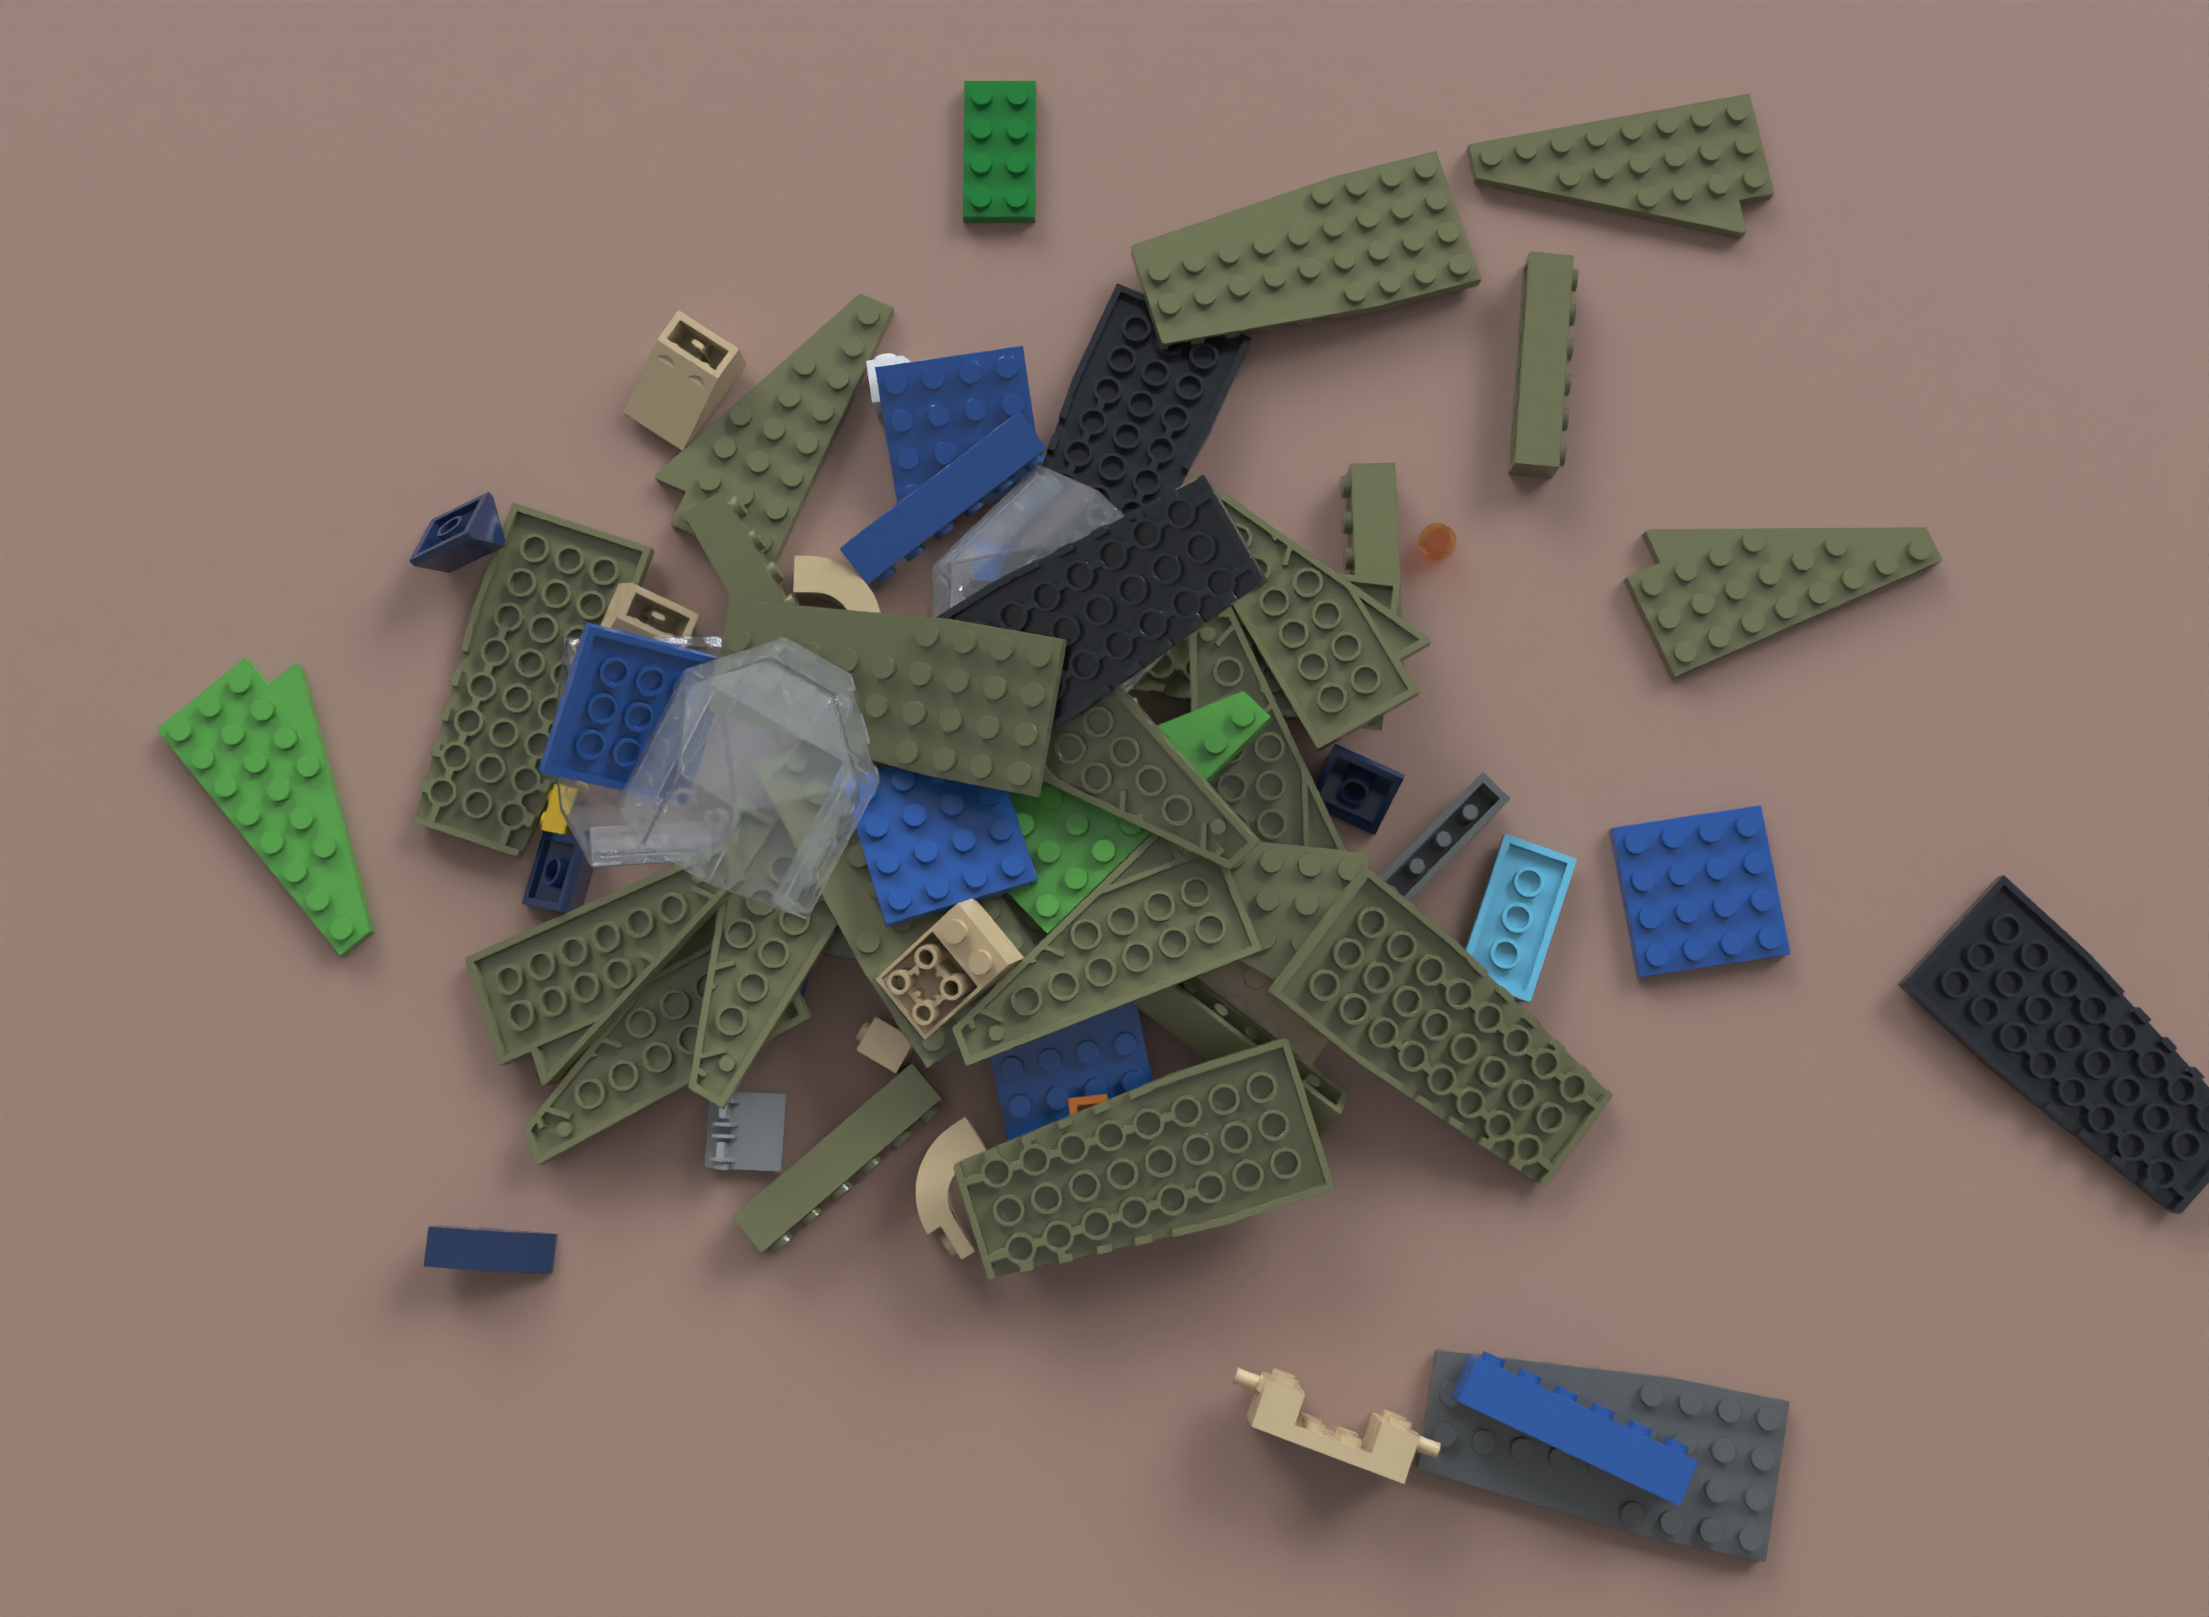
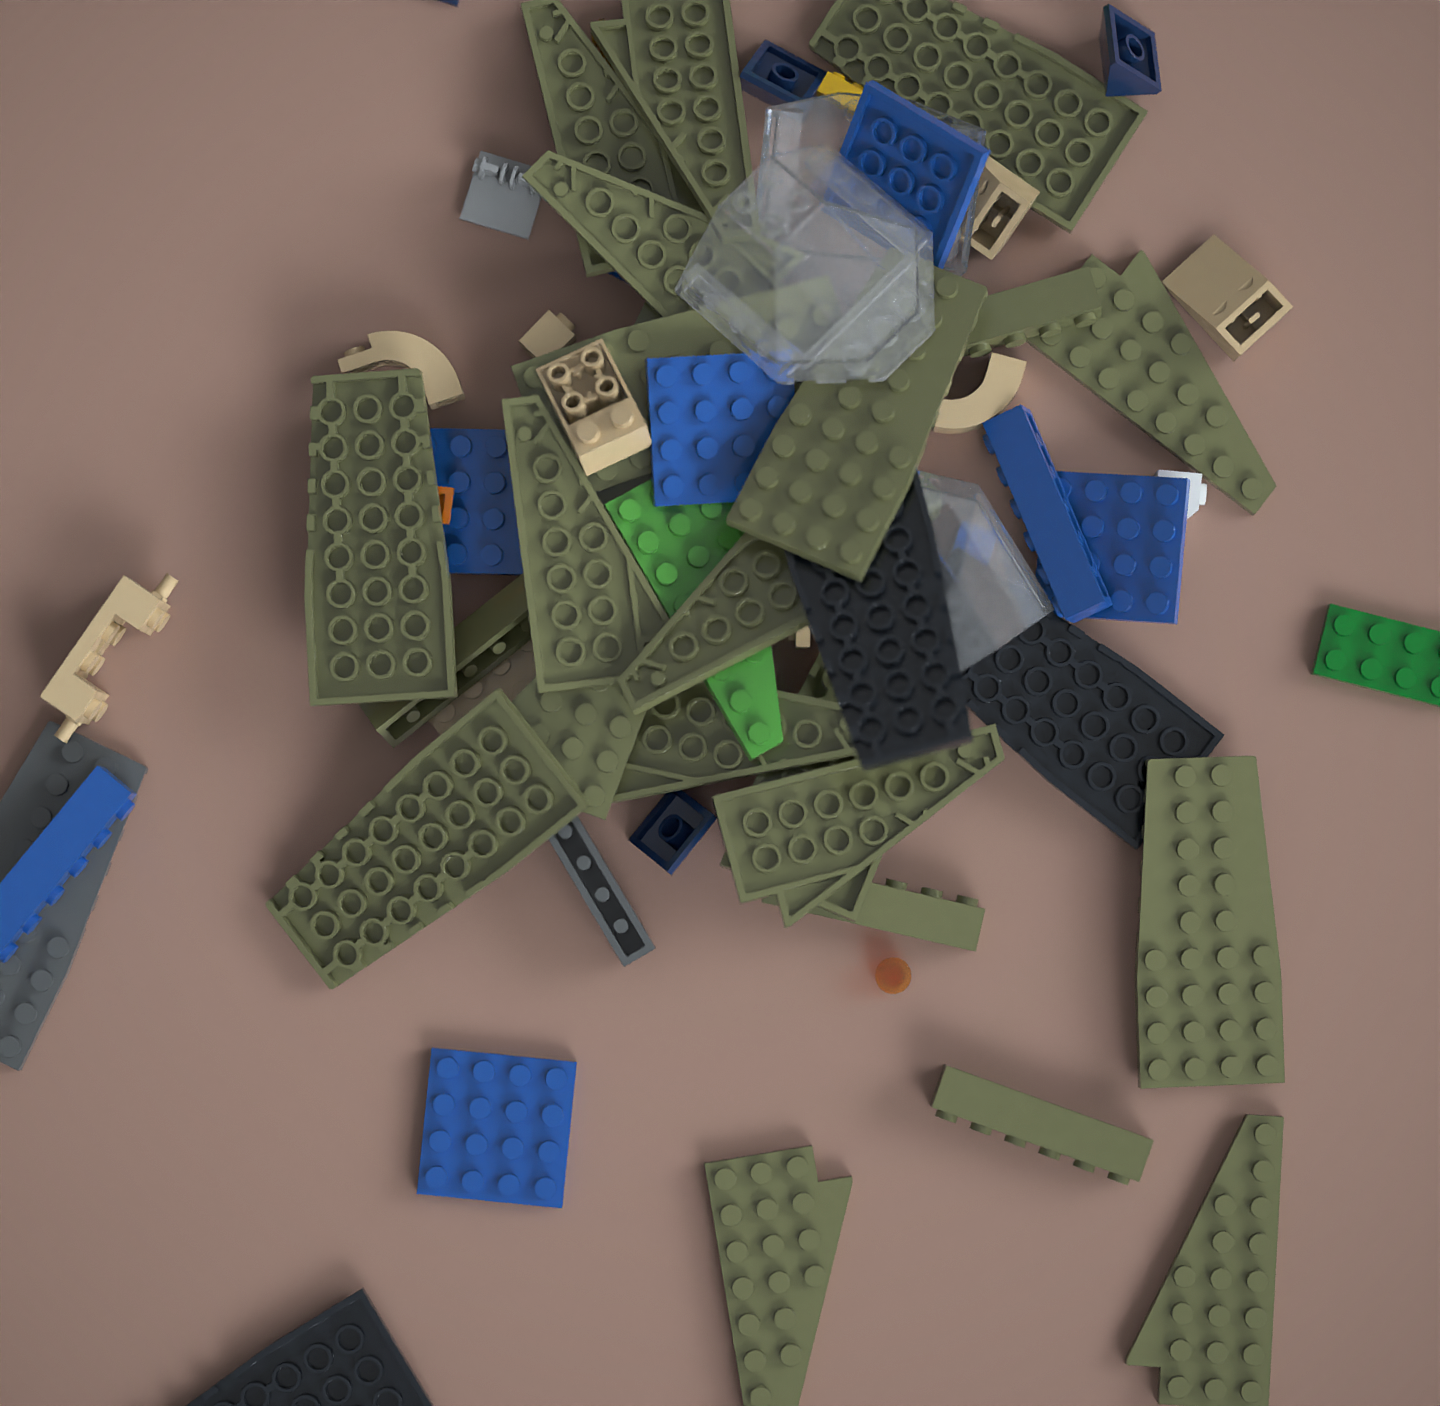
camera: 100 degrees right, 5 degrees up
(838, 1158) = (457, 273): olive brick -> none
(1519, 913) = (516, 949): medium azure plate -> none

